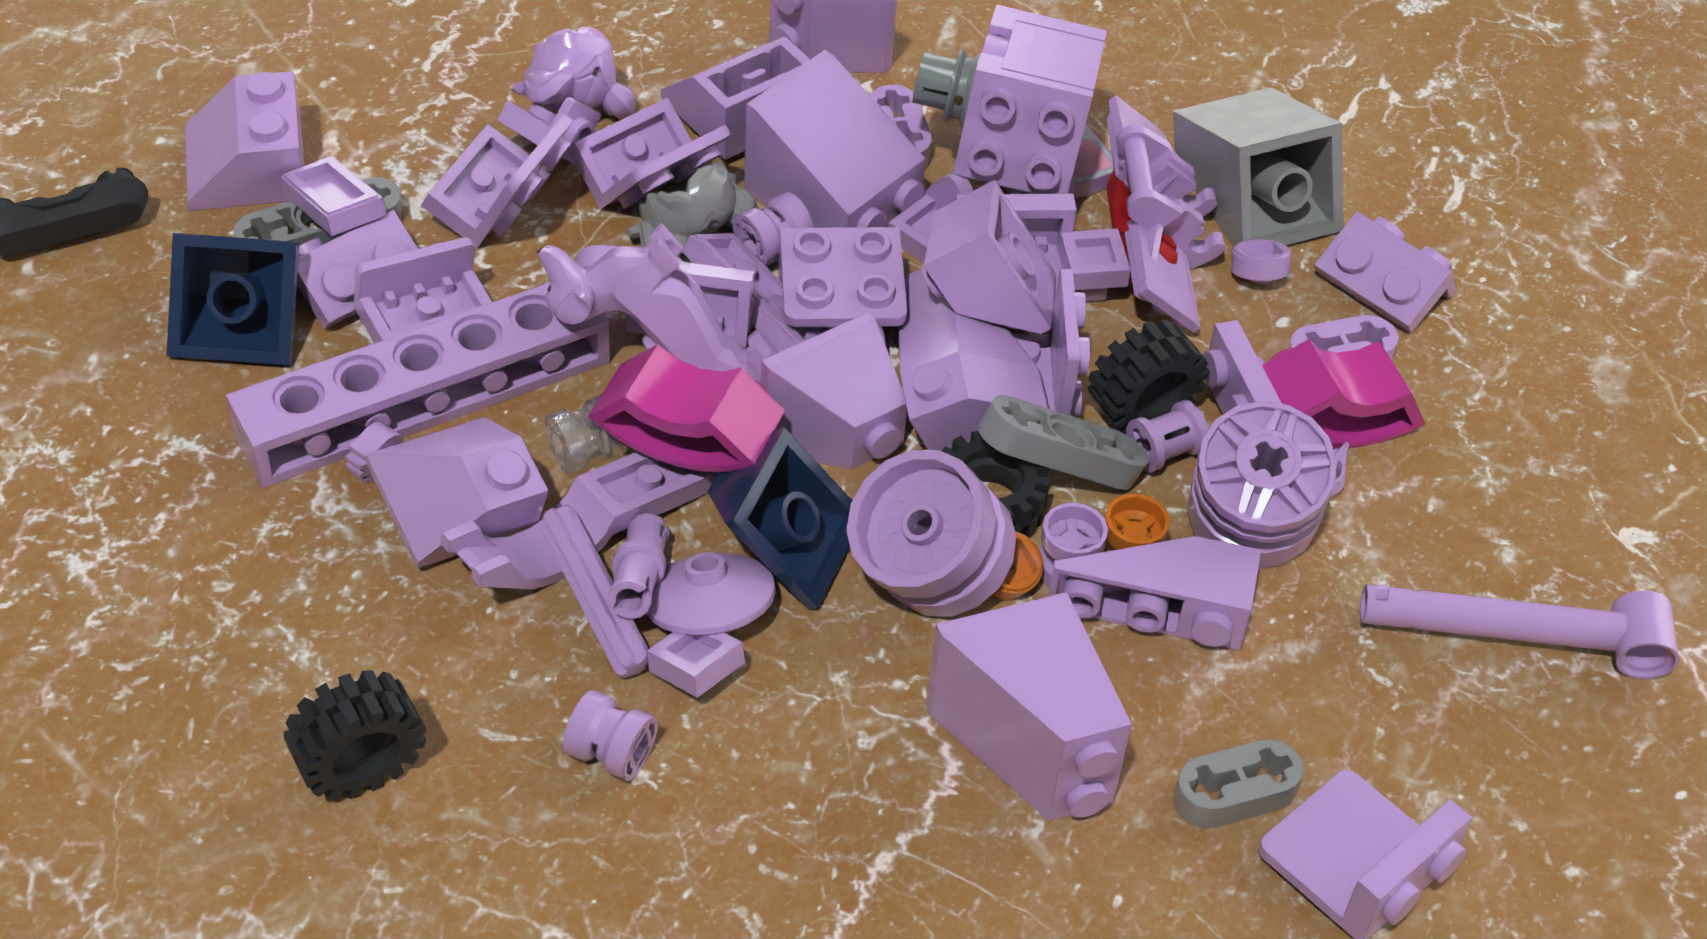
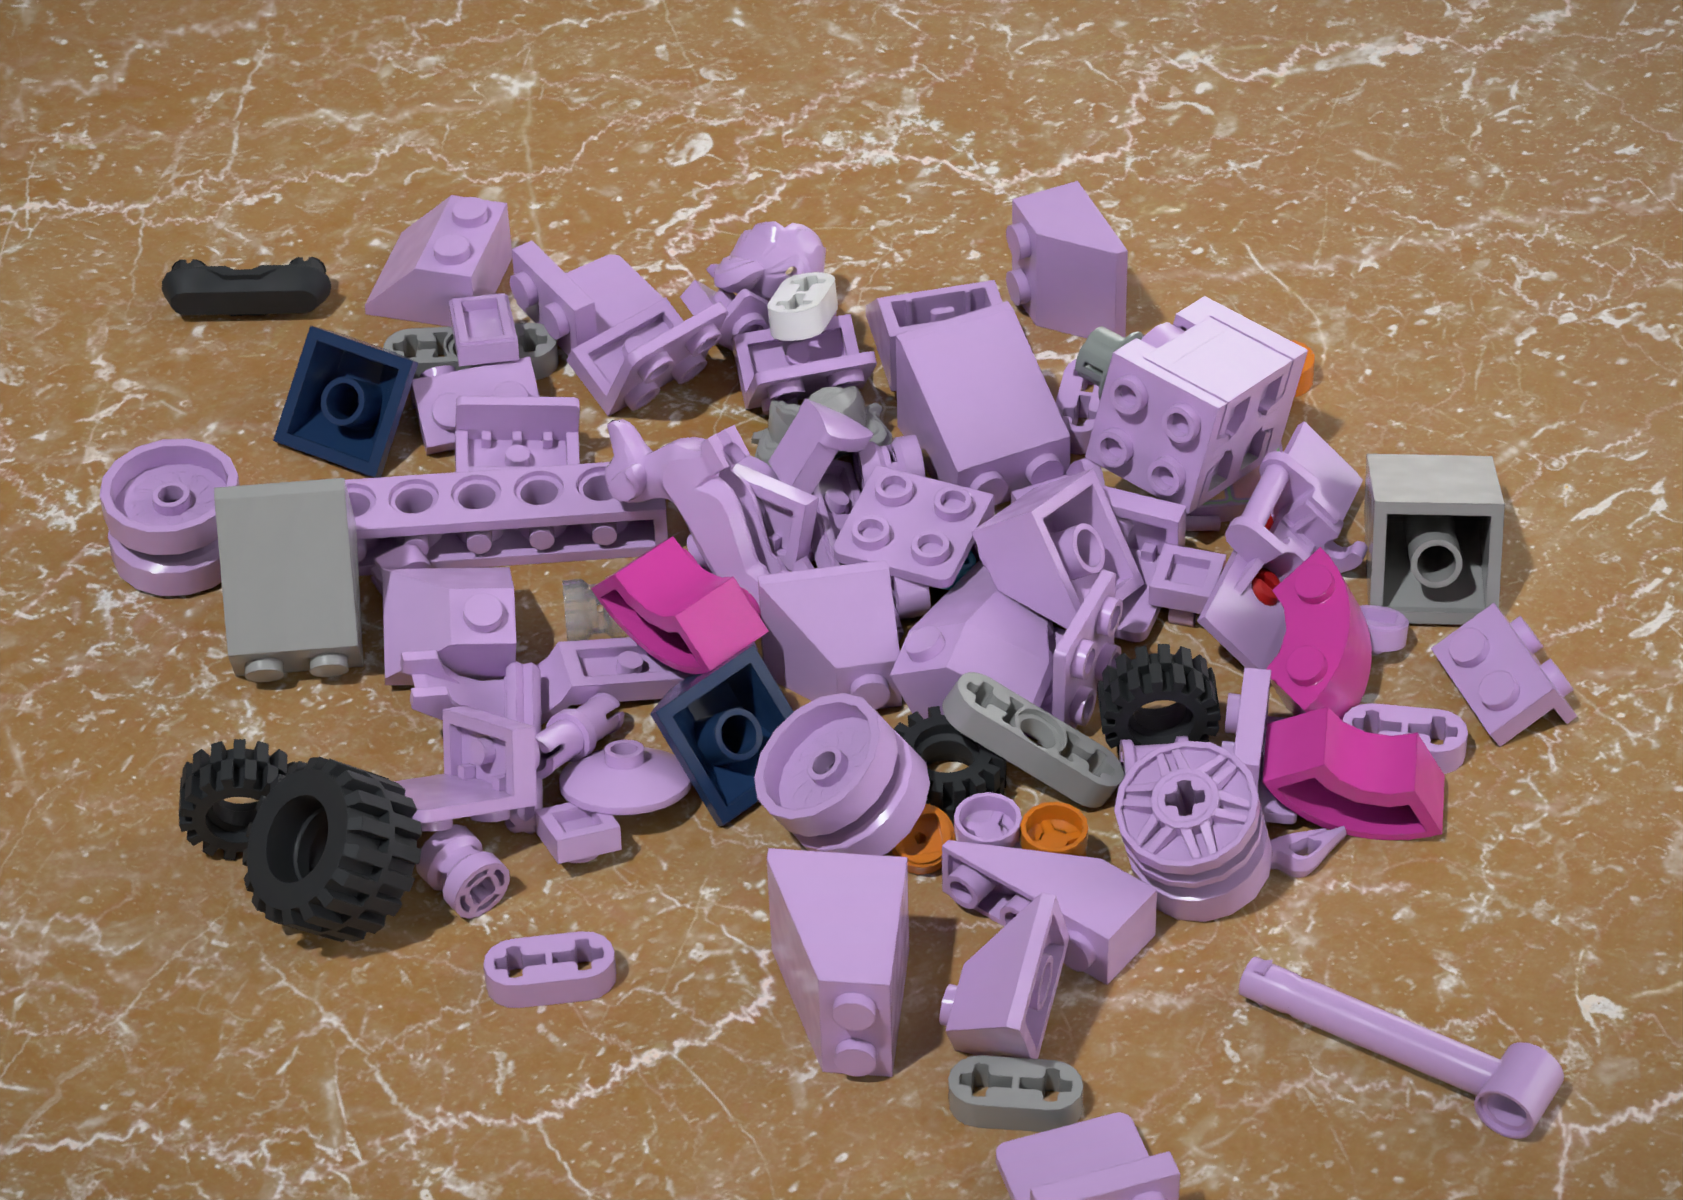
camera: 30 degrees right, 5 degrees down
(120, 460) = (165, 515): none -> lavender wheel
(289, 490) = (289, 578): none -> light grey slope
(405, 144) = (577, 302): none -> lavender bracket
(442, 771) = (331, 850): none -> black tyre
(580, 636) = (486, 771): none -> lavender bracket
(627, 100) = (802, 306): none -> white beam
(714, 224) = (813, 443): none -> lavender tile
(743, 803) = (550, 969): none -> lavender beam
(1207, 687) = (1009, 985): none -> lavender slope
(1250, 277) = (1325, 641): none -> dark pink brick

